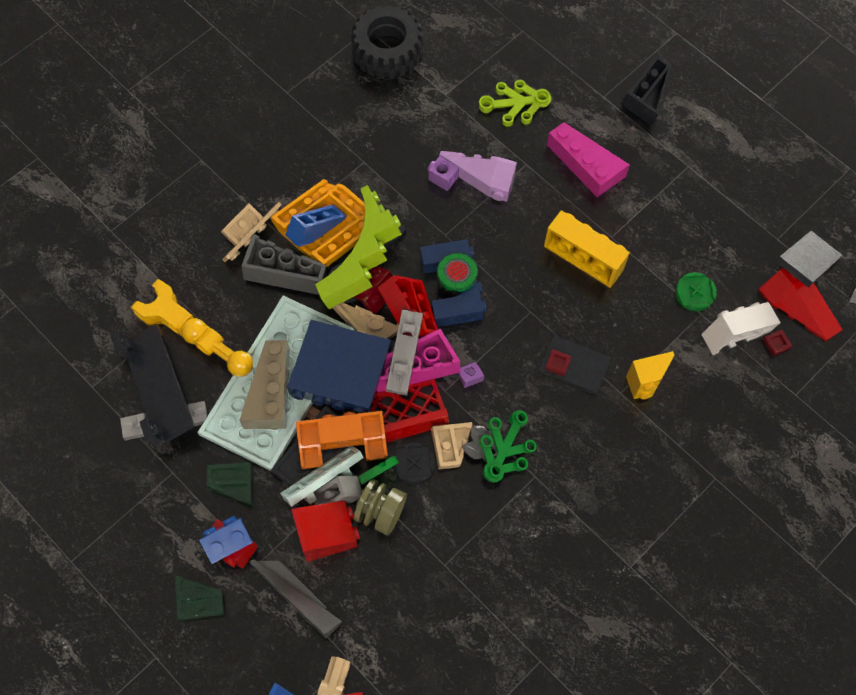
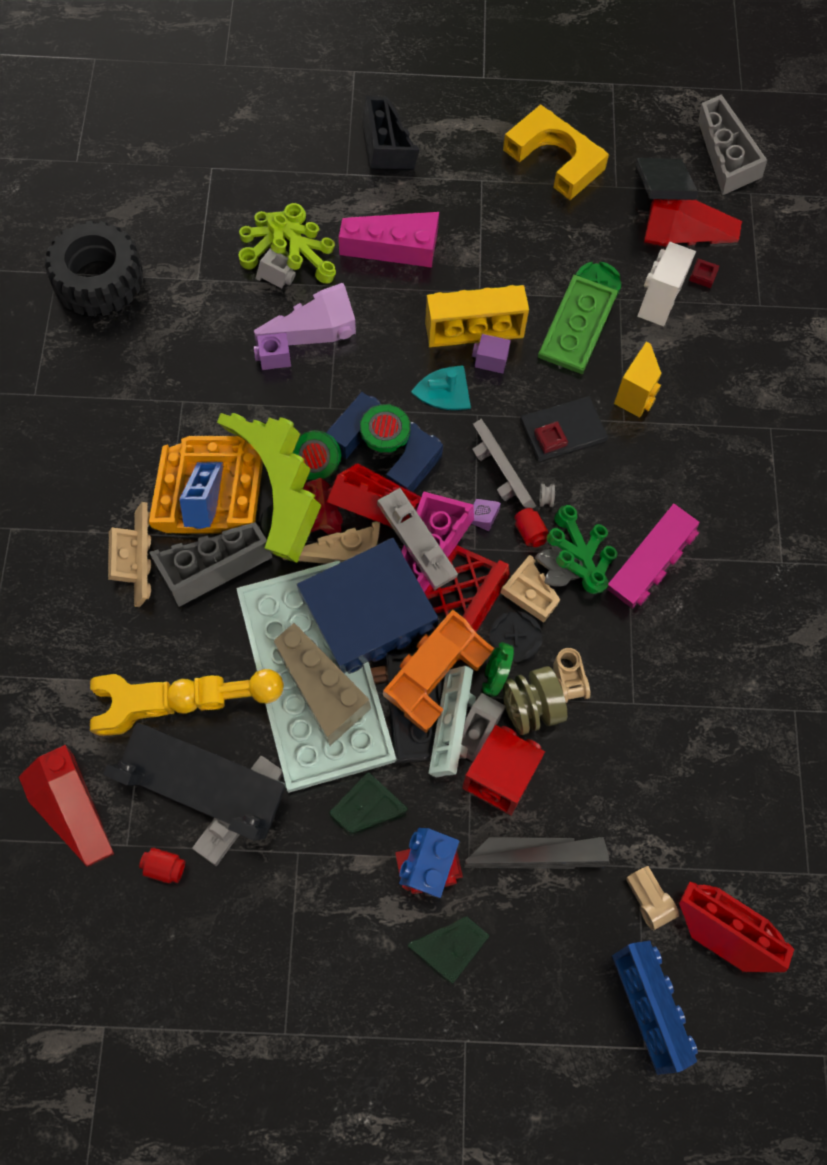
camera: 45 degrees left, 0 degrees up
(83, 336) = (62, 798): none -> red wedge
(96, 413) = (162, 865): none -> red brick
(403, 255) = (320, 454): none -> tile
(417, 517) = (572, 680): none -> tan piece
(489, 406) = (531, 527): none -> red brick
(494, 123) = (275, 270): none -> light grey brick
(514, 339) = (490, 447): none -> light grey hinge
(519, 395) = (547, 495): none -> light grey bush
(525, 120) = (280, 226): none -> lime plant
(526, 279) = (444, 389): none -> teal shield
(544, 489) = (653, 556): none -> dark pink wedge
(576, 281) = (491, 353): none -> medium lavender brick
(652, 307) = (578, 324): none -> bright green tile
(763, 162) = (545, 128): none -> yellow arch

